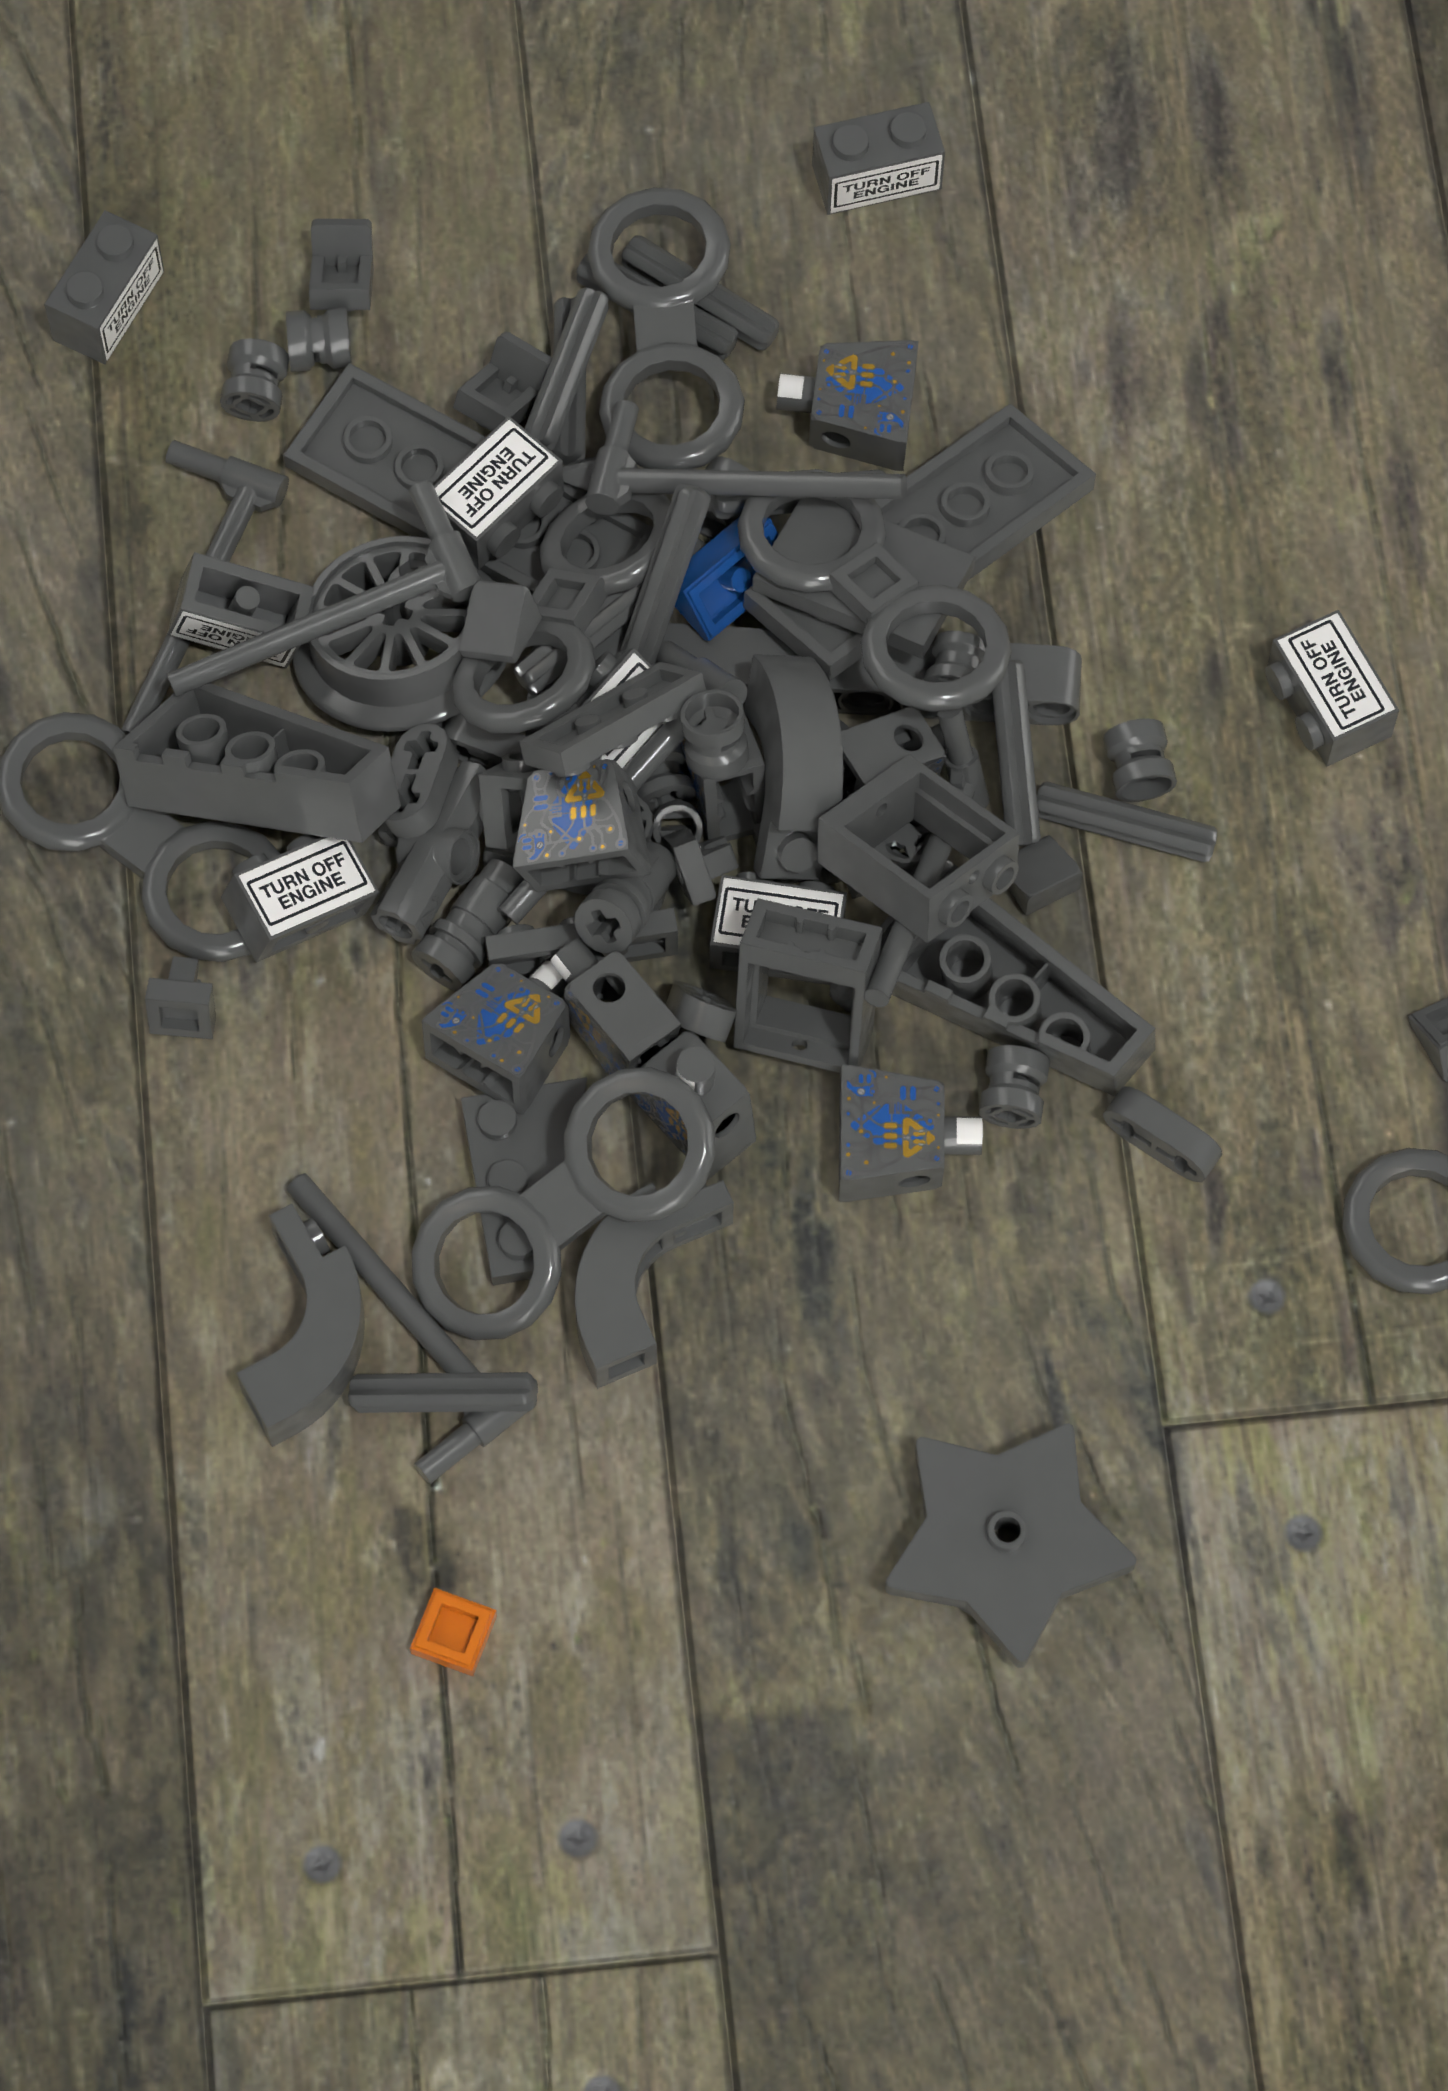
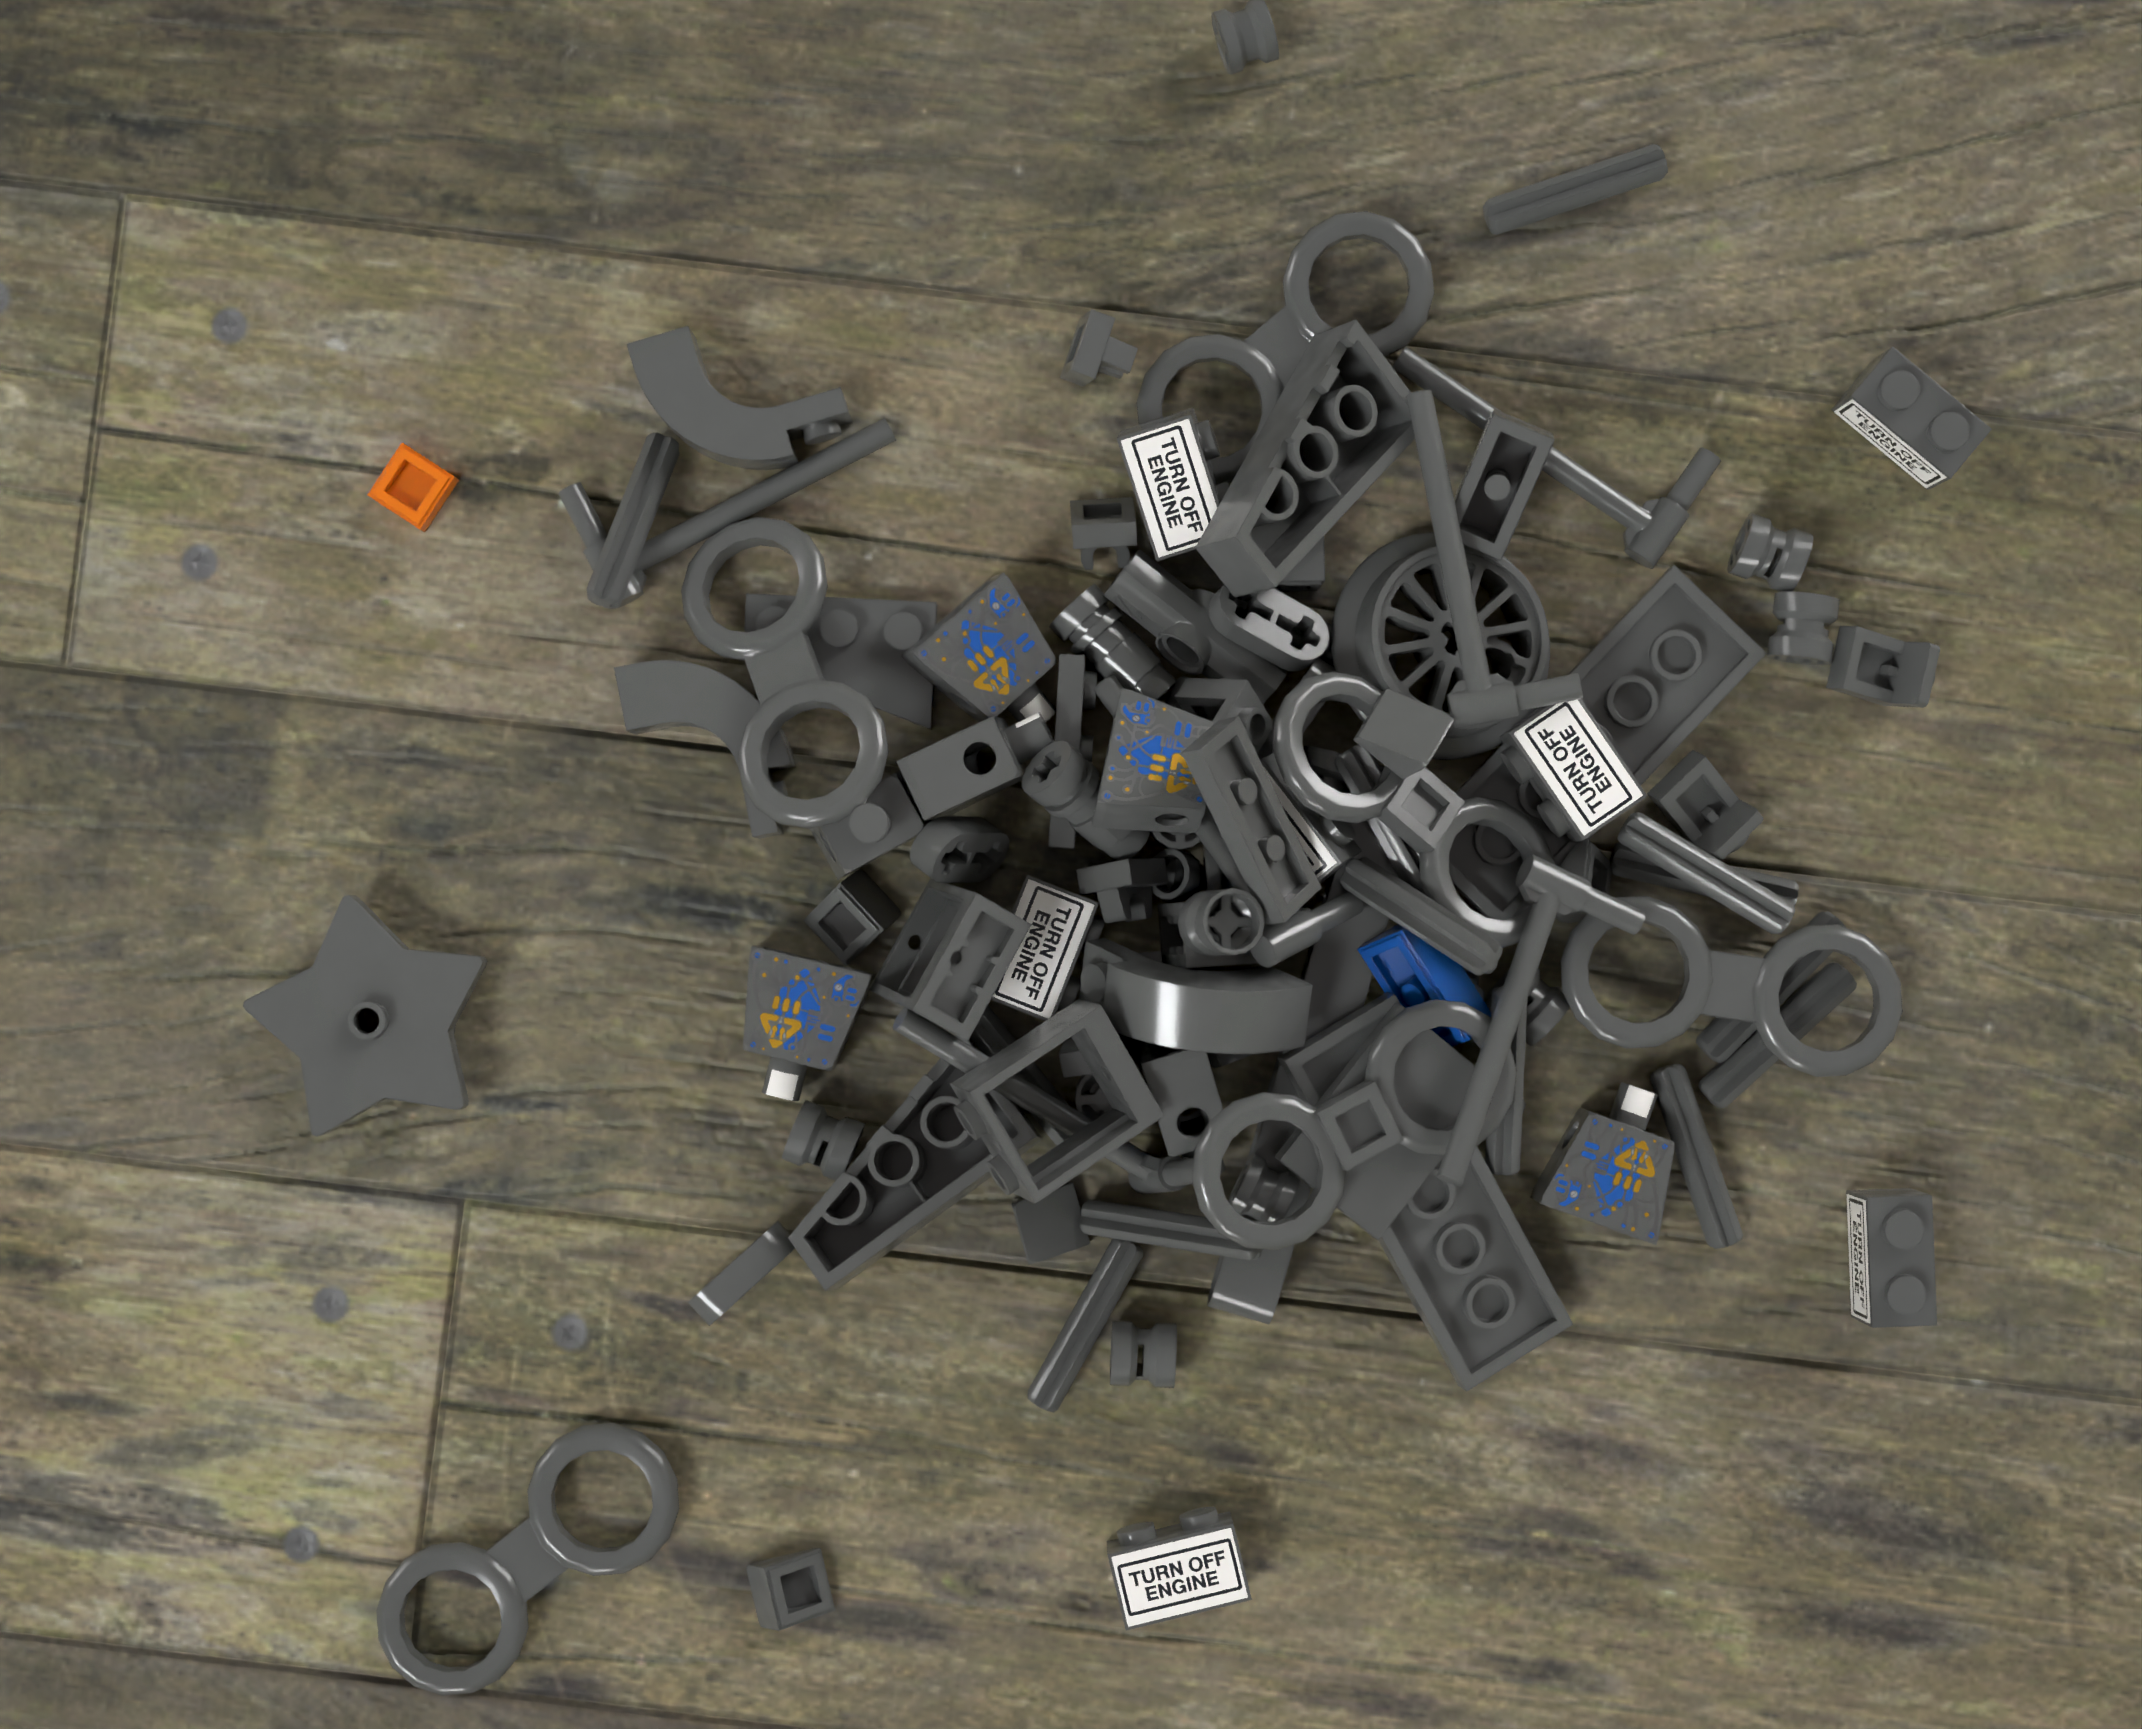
camera: 105 degrees right, 20 degrees up
(352, 958) = (1103, 524): none -> dark grey tile
(791, 1115) = (852, 916): none -> dark grey slope
(846, 325) = (1696, 1156): none -> dark grey axle

